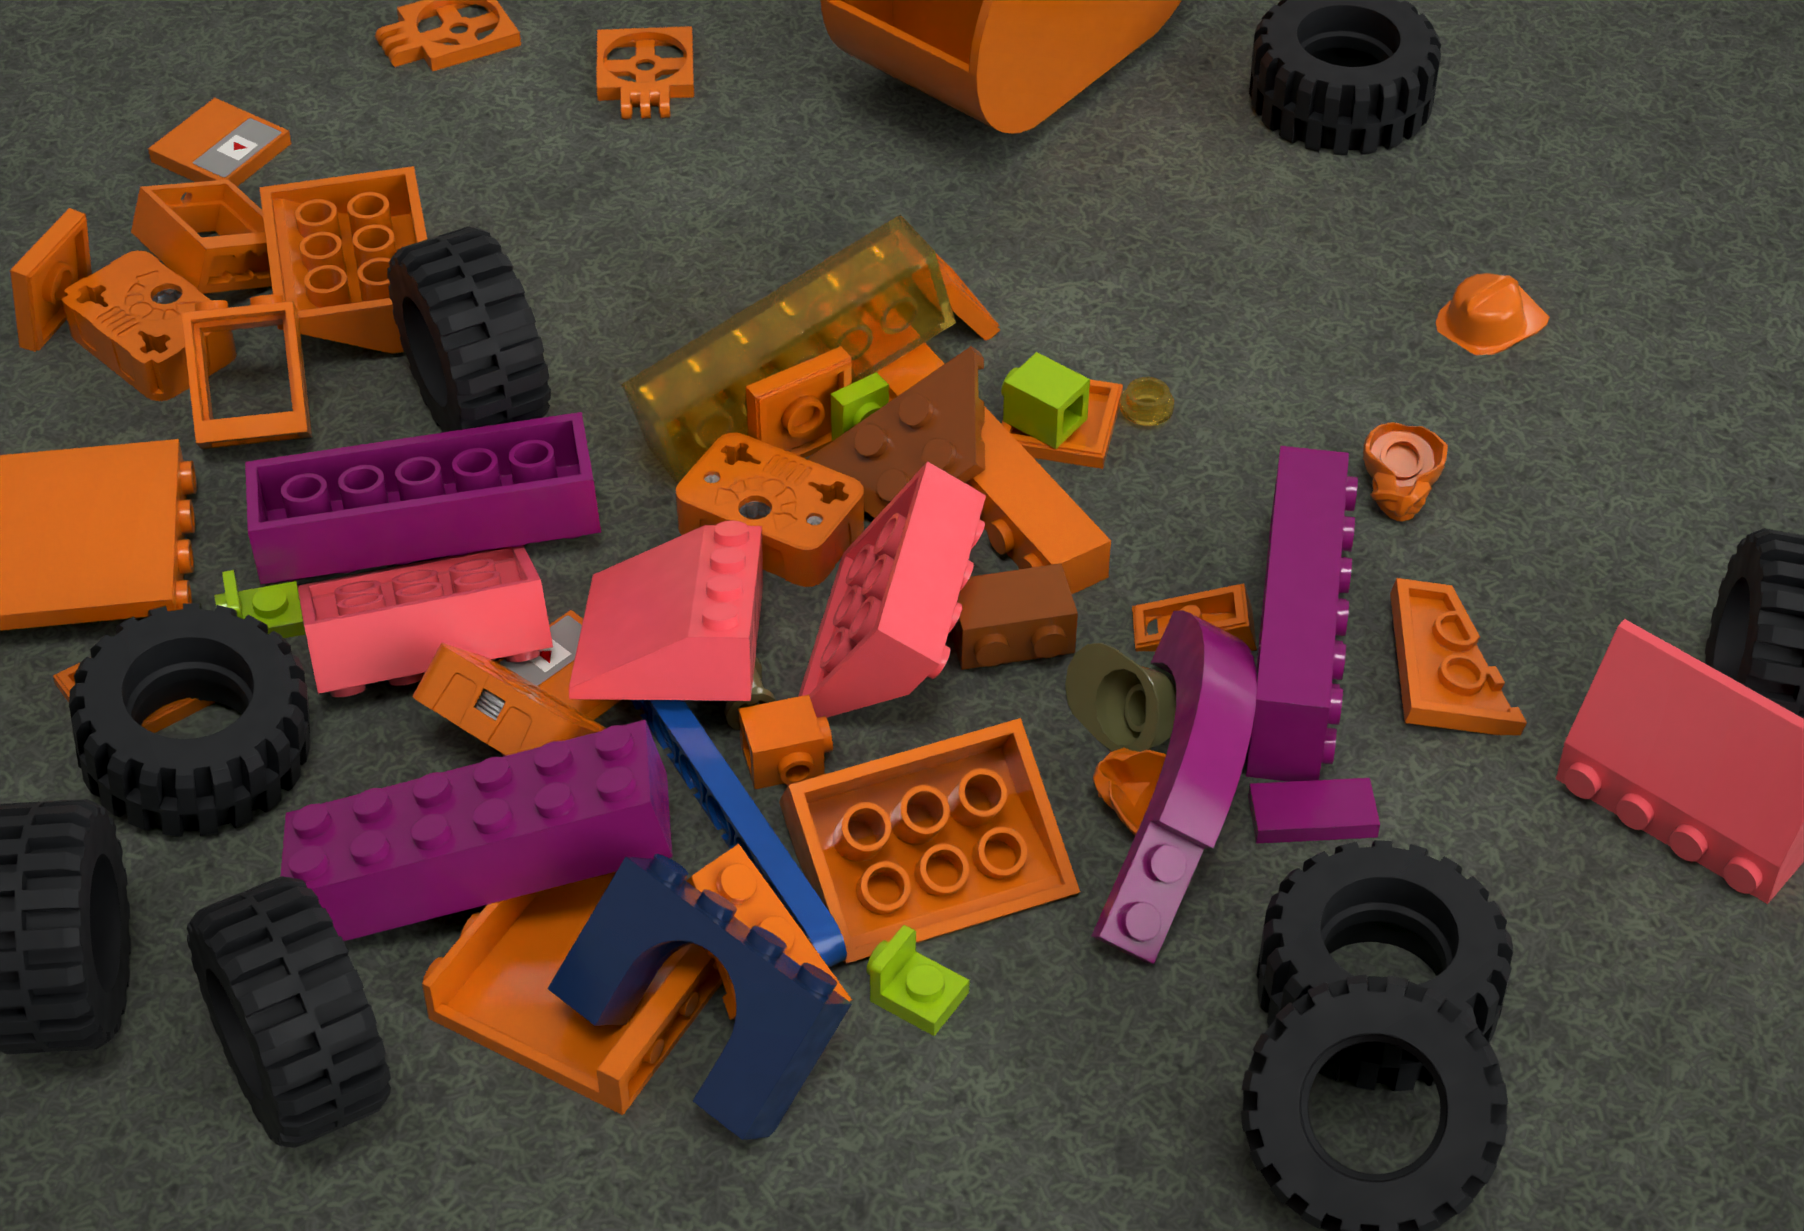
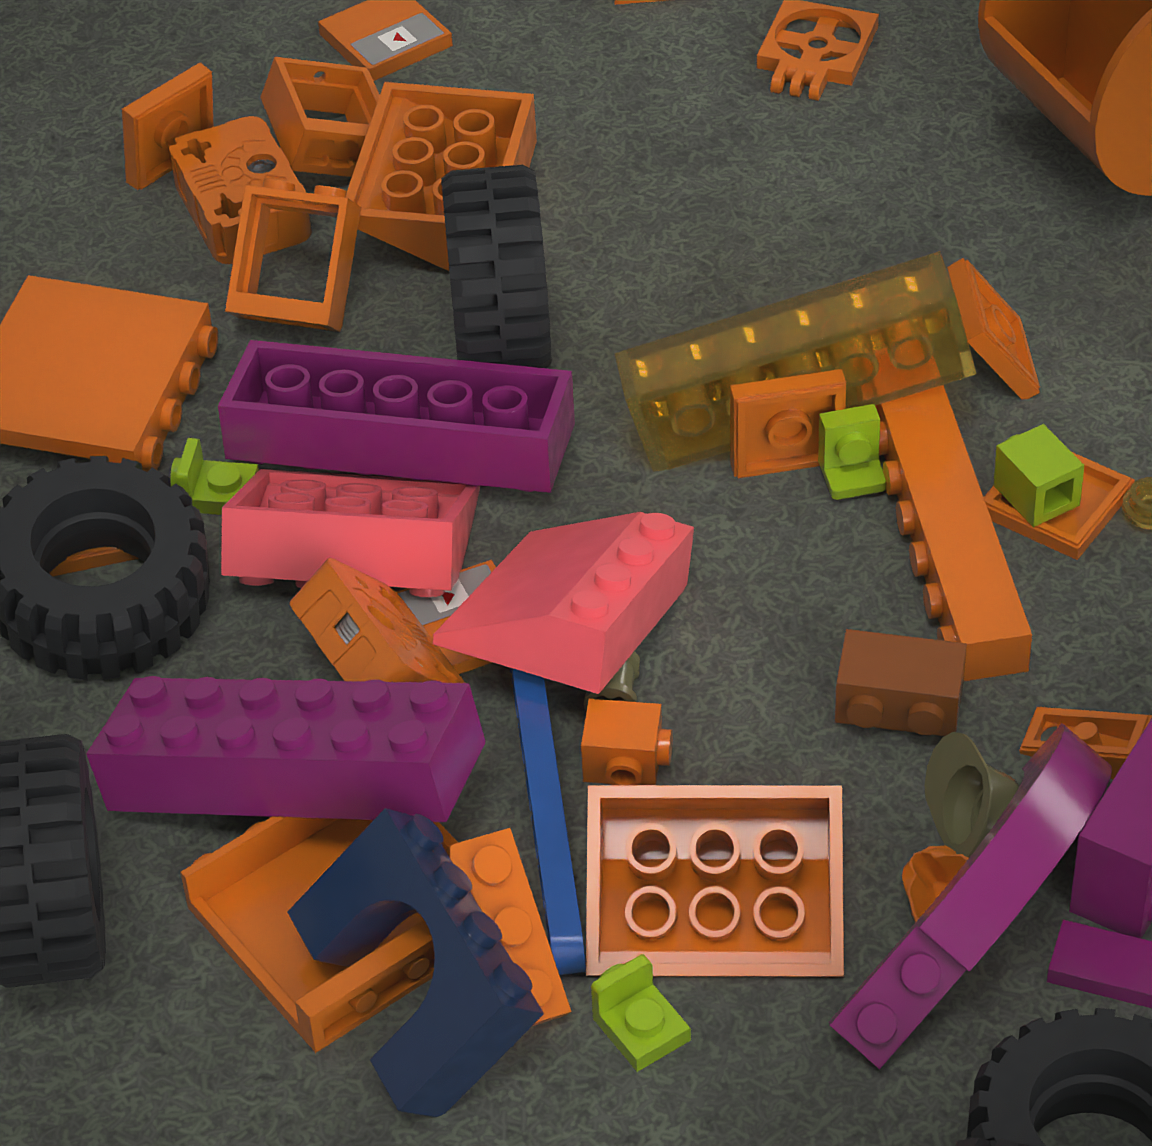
camera: 25 degrees right, 0 degrees up
(803, 507) = (741, 513): orange axle -> none
(896, 596) = (789, 631): coral slope -> none
(929, 422) = (878, 487): dark orange wing -> none

